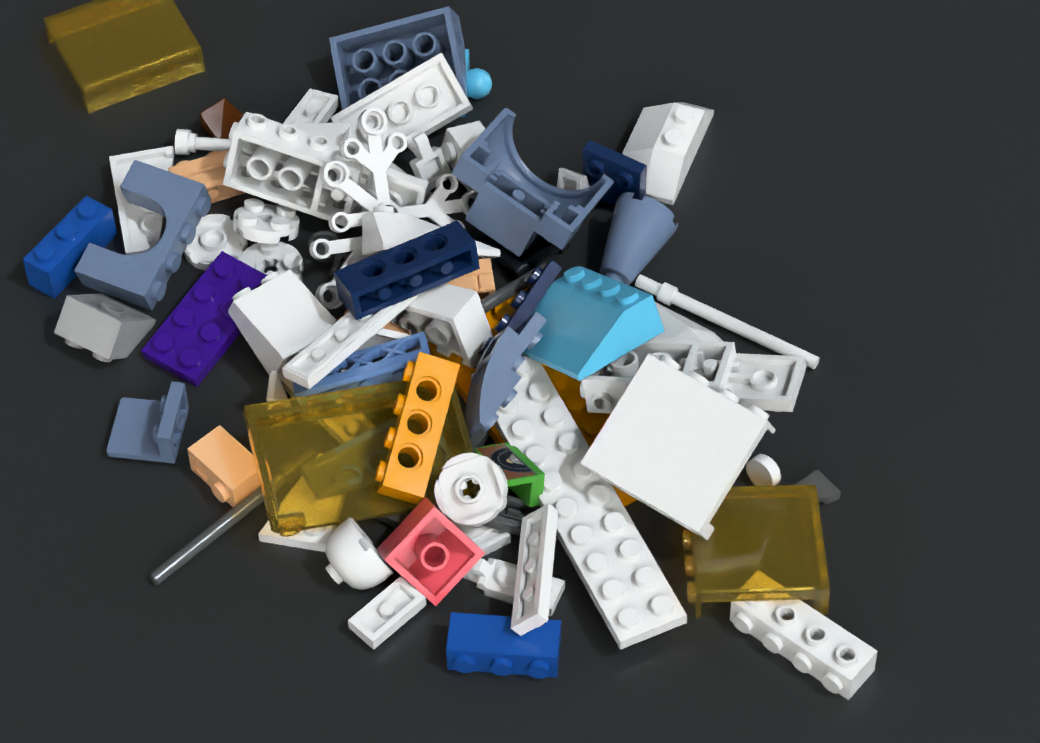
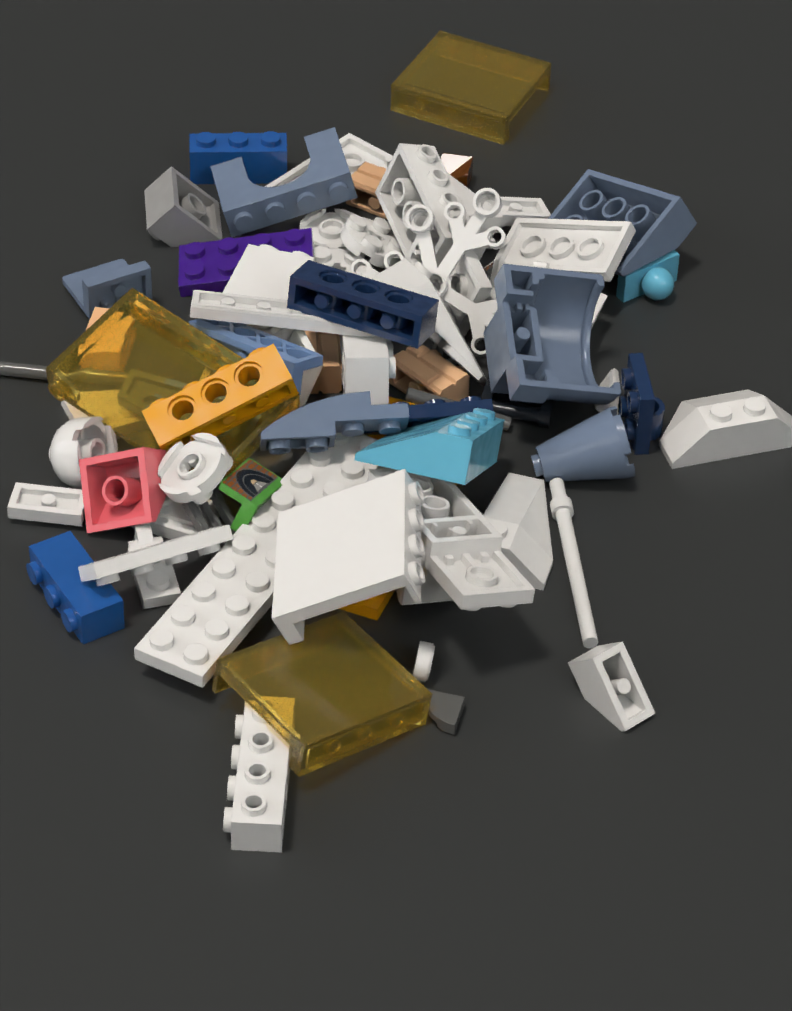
camera: 50 degrees right, 10 degrees down
(875, 375) = (612, 685): none -> white slope

